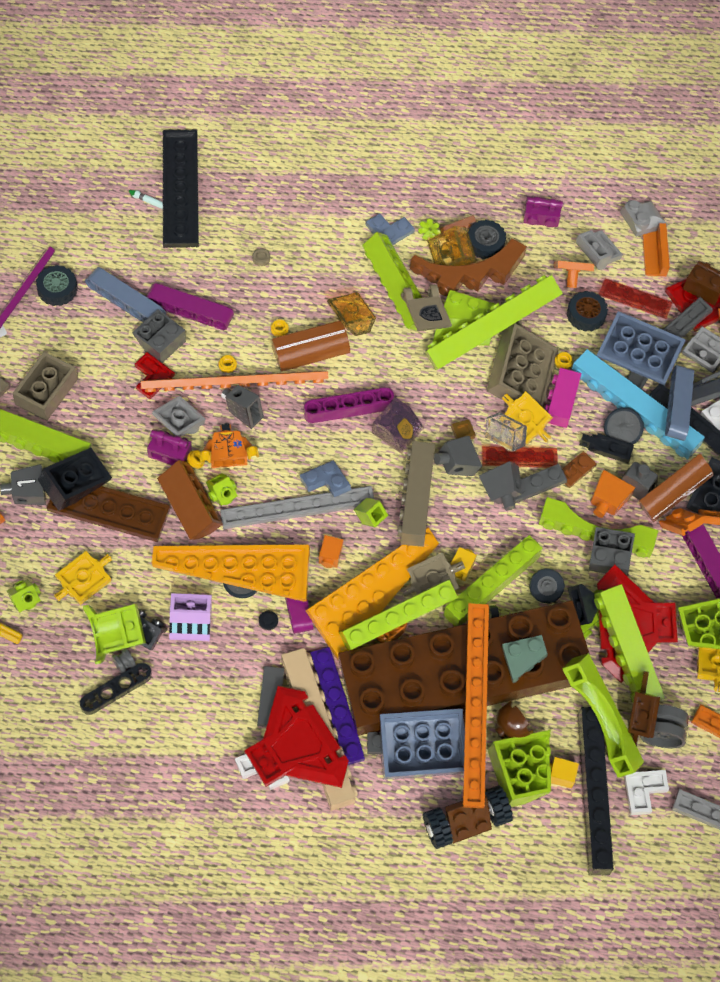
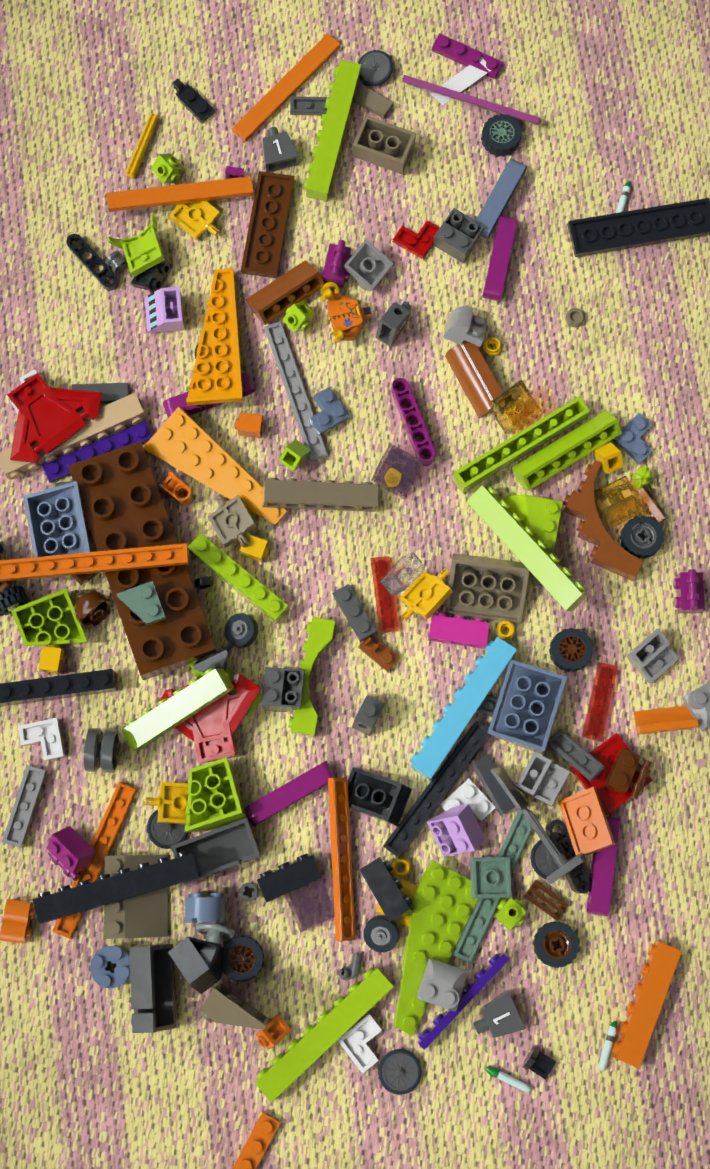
camera: 85 degrees right, 15 degrees up
(45, 531) = (234, 172): none -> magenta tile
(58, 587) = (179, 194): none -> orange tile
(73, 478) = (286, 184): black slope -> none
(226, 381) = (422, 315): orange plate -> none
(227, 359) = (442, 299): yellow plate -> none
(259, 343) = (464, 326): none -> light grey brick
(268, 620) = (173, 380): black plate -> none
(387, 318) = (520, 444): none -> lime brick
(398, 615) = (199, 512): lime arch -> none
(408, 248) = (610, 457): none -> yellow brick
(427, 312) = (527, 480): dark tan flag -> none
(459, 457) = (368, 531): dark grey torso -> none
(463, 429) = (403, 535): pearl gold plate -> none
(503, 484) = (342, 577): dark grey torso -> none
(573, 269) = (619, 629): orange tile -> none
(587, 681) = (73, 710): lime arch -> none
(608, 447) = (408, 682): black hinge -> none
(610, 494) = (351, 686): orange torso -> none
(624, 425) = (433, 696): dark grey wheel -> none
(643, 712) = (106, 722): reddish brown plate -> none
(676, 488) = (361, 749): dark orange brick -> none
(679, 403) = (464, 748): sand blue beam -> none
(682, 521) = (328, 759): orange plate -> none

